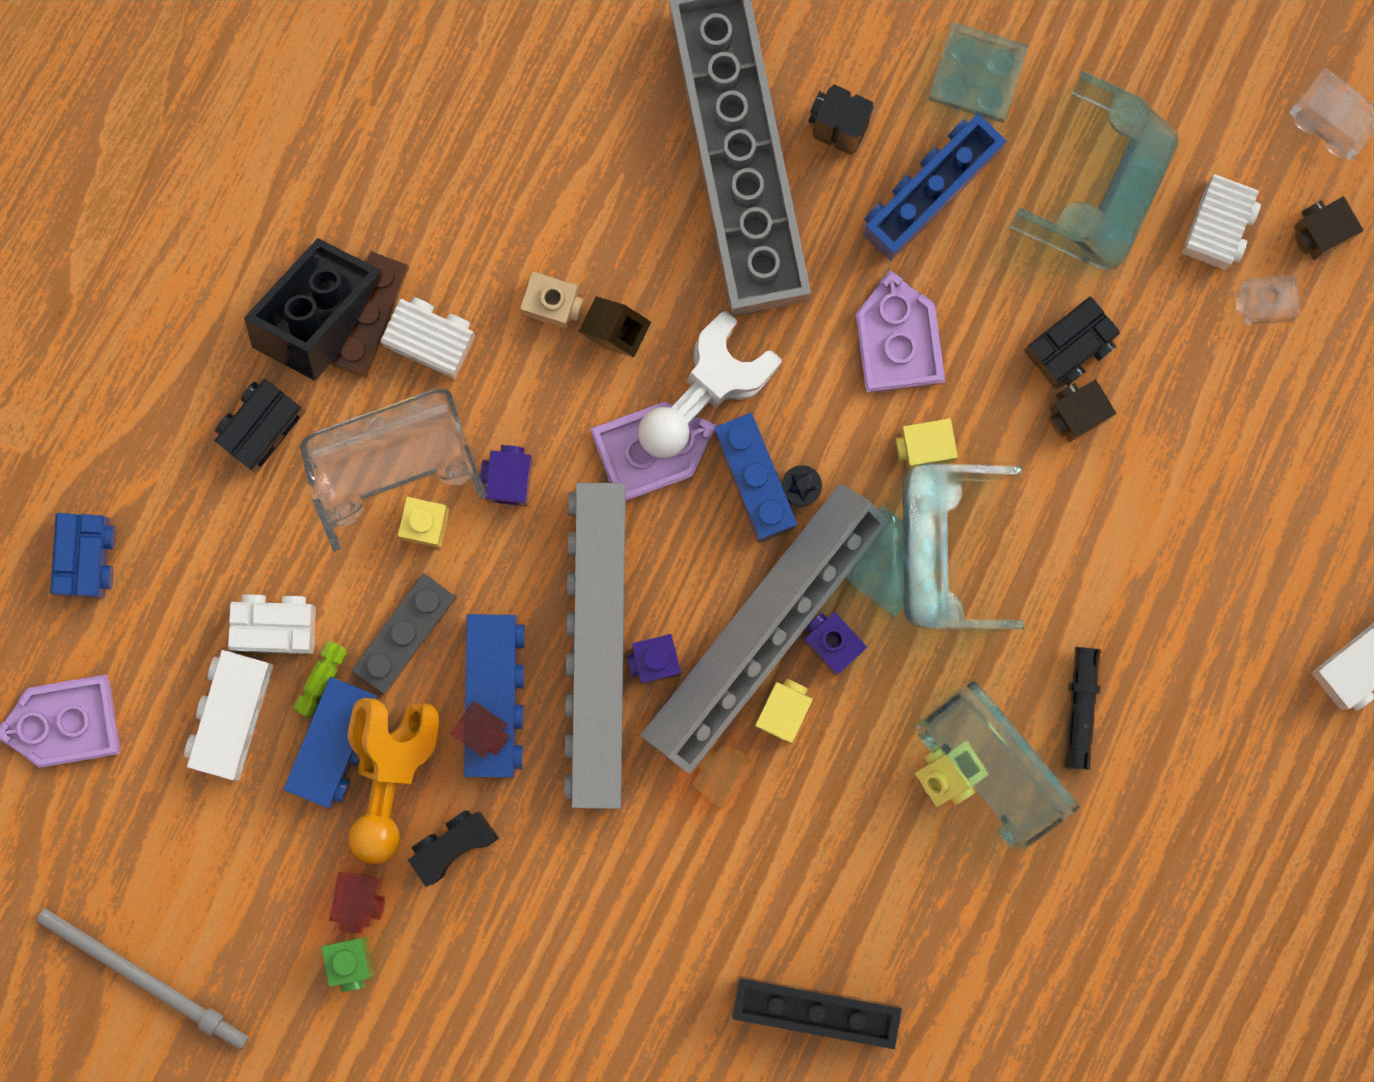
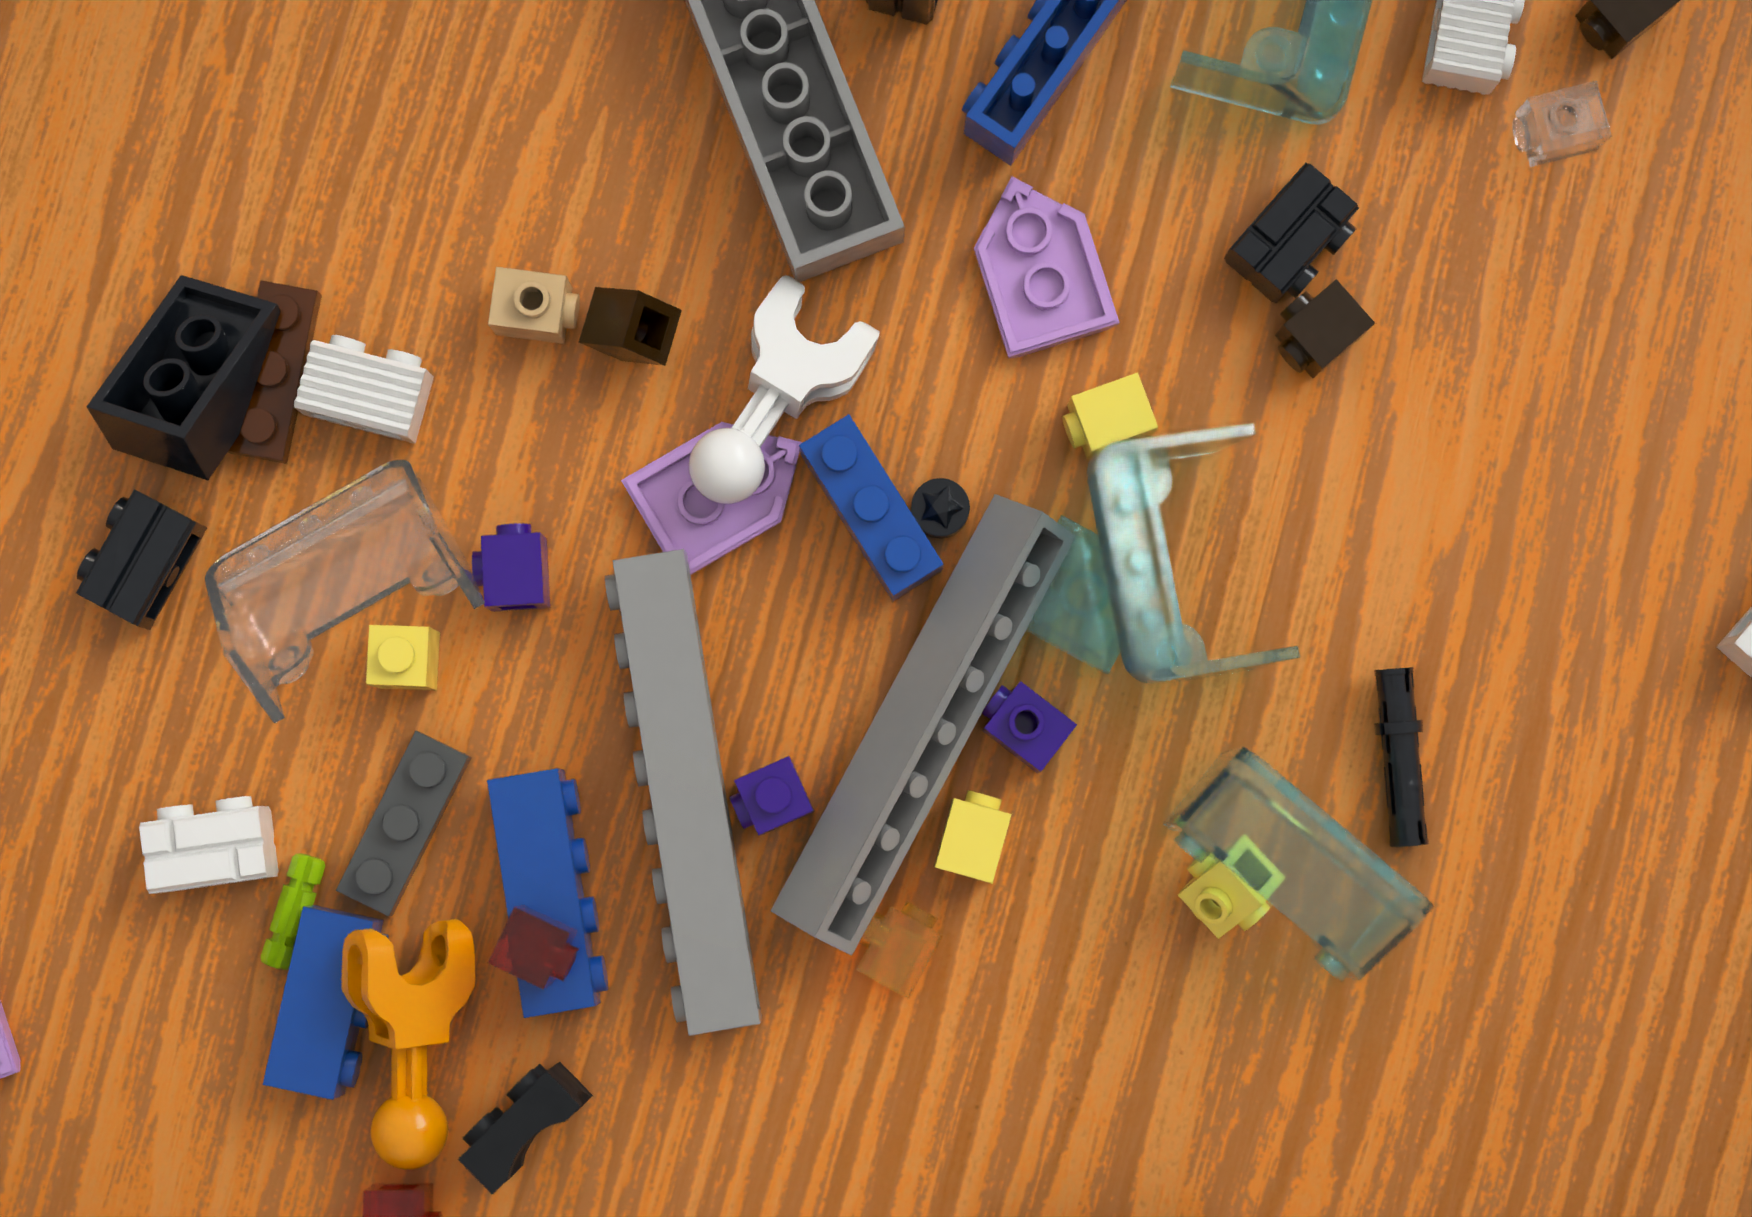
camera: 10 degrees left, 0 degrees up
(228, 715) = (167, 988): white brick -> none

